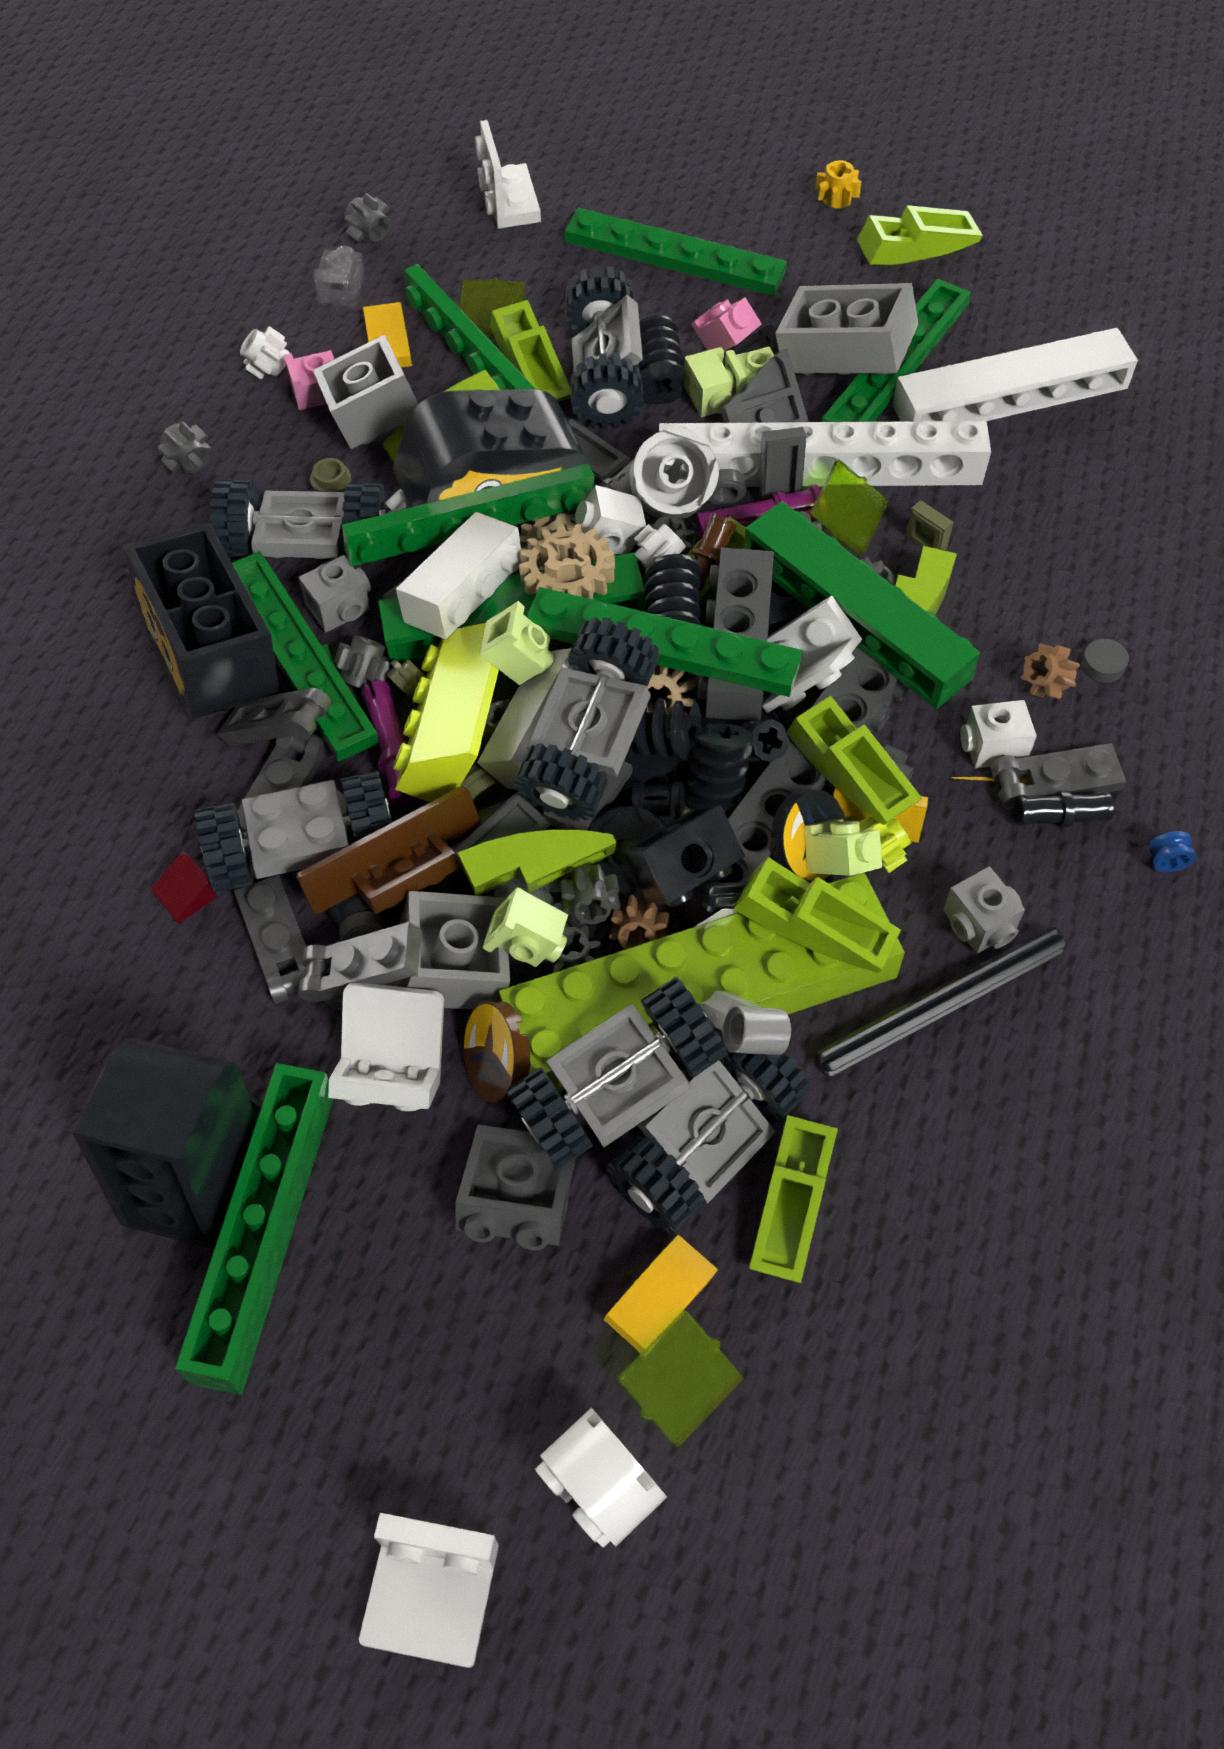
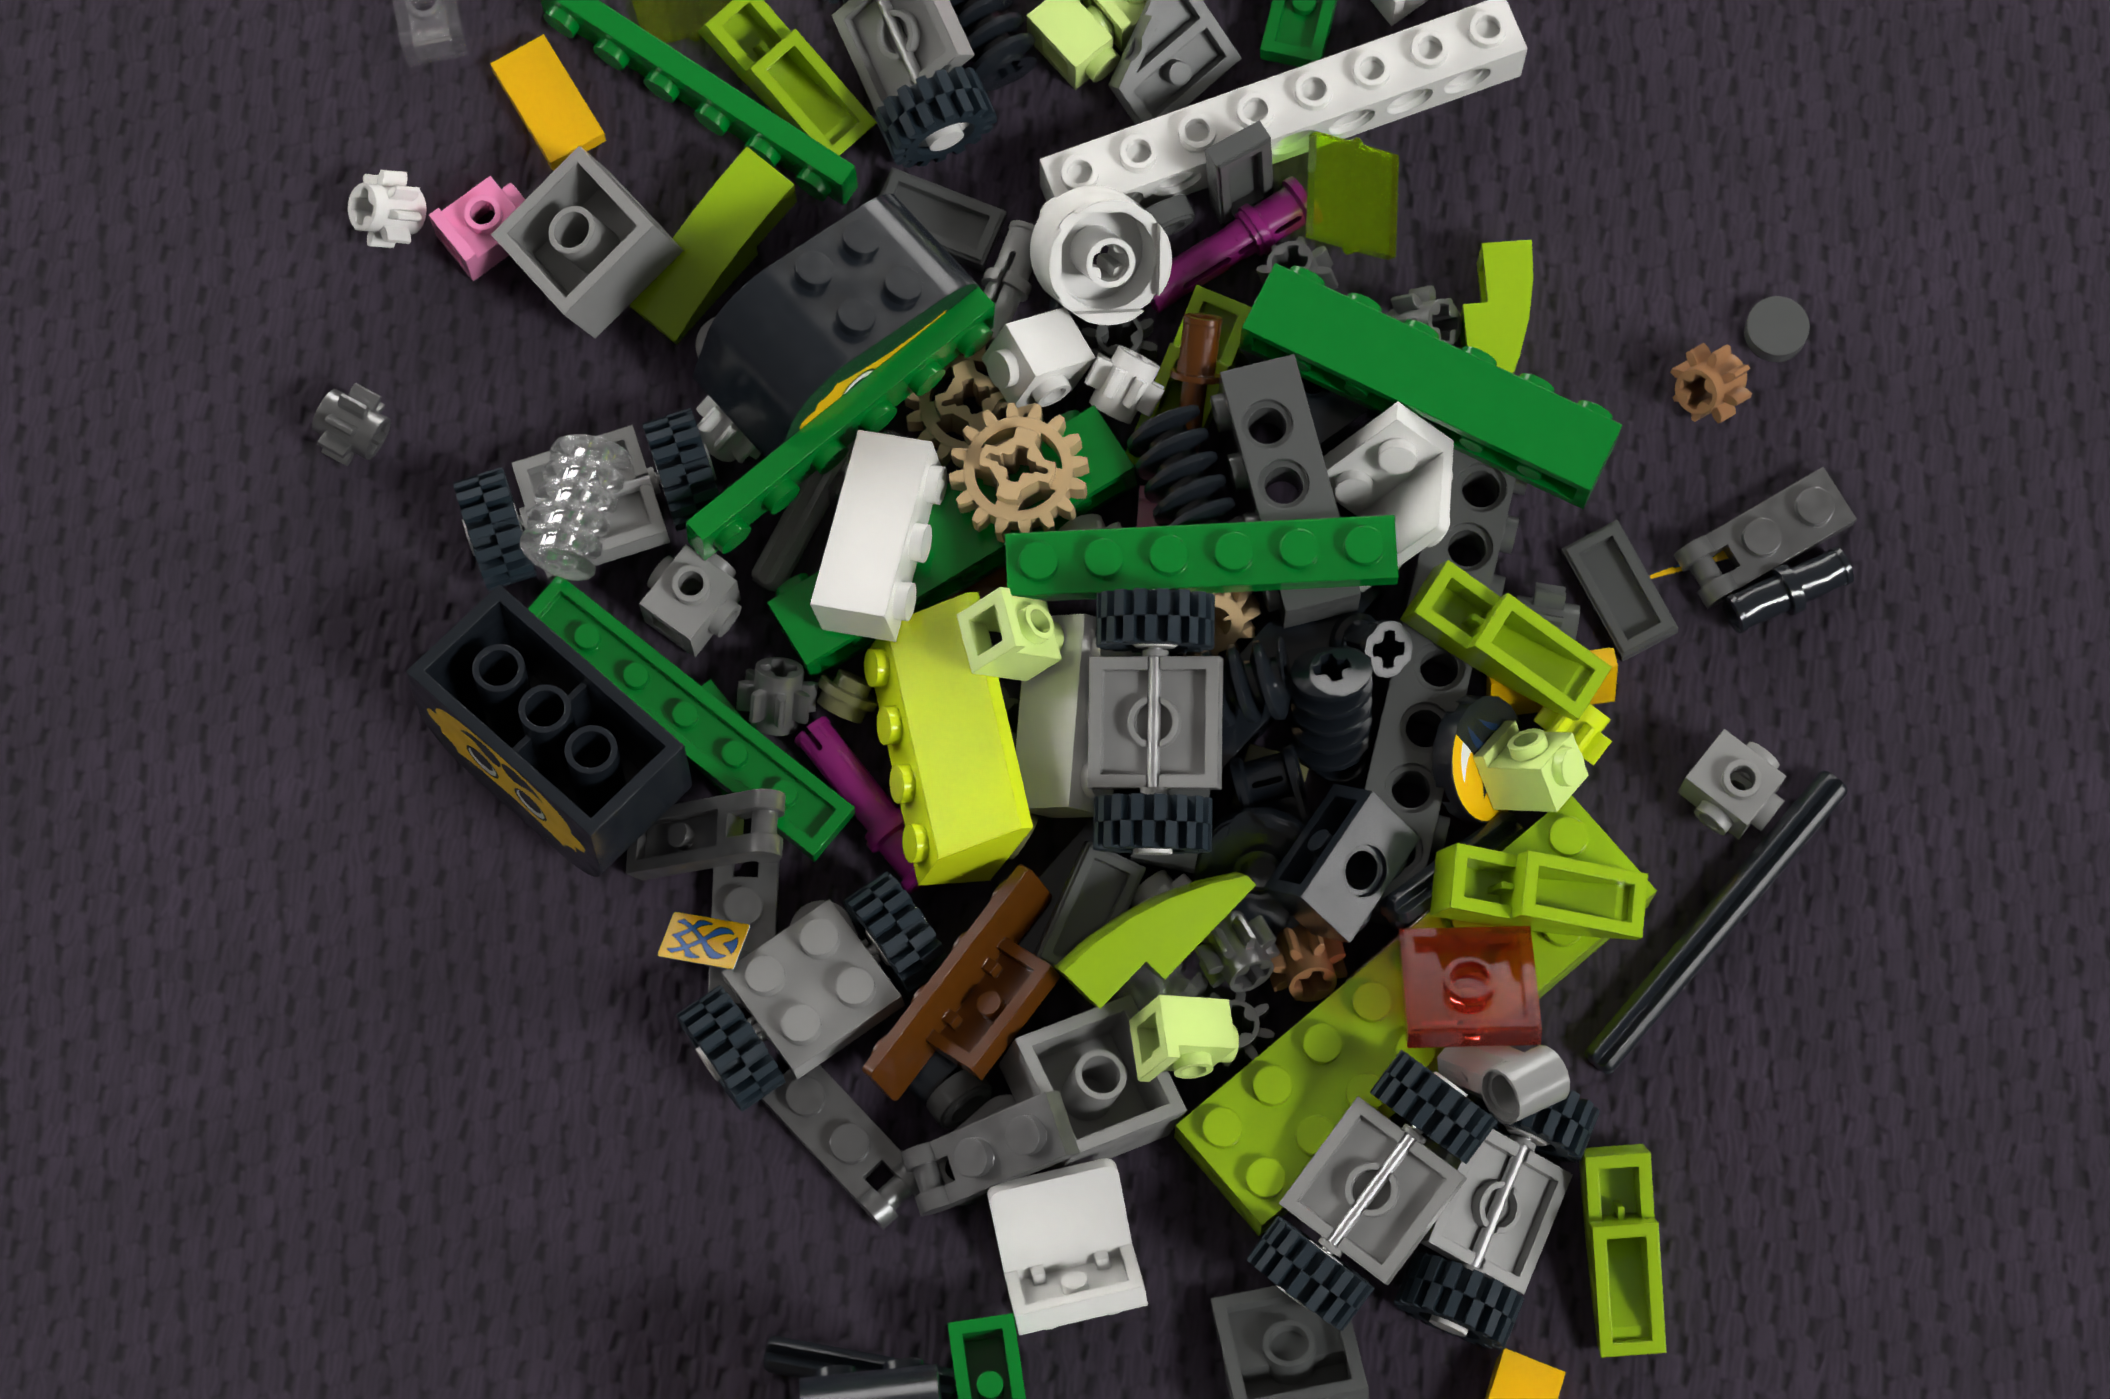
camera: 20 degrees left, 15 degrees up
(183, 888) = (690, 1115): dark red slope -> none
(244, 784) = (703, 940): none -> yellow sticker
(283, 506) = (573, 505): none -> clear piece
(330, 476) = (584, 396): olive plate -> none
(495, 1050) = (1200, 1202): tile -> none
(741, 958) = (1469, 987): none -> clear red plate
(928, 527) = (1474, 195): olive tile -> none
(945, 777) = (1619, 590): none -> dark grey tile
(998, 732) = (1671, 507): white brick -> none
(1172, 851) = (1943, 607): blue bush -> none

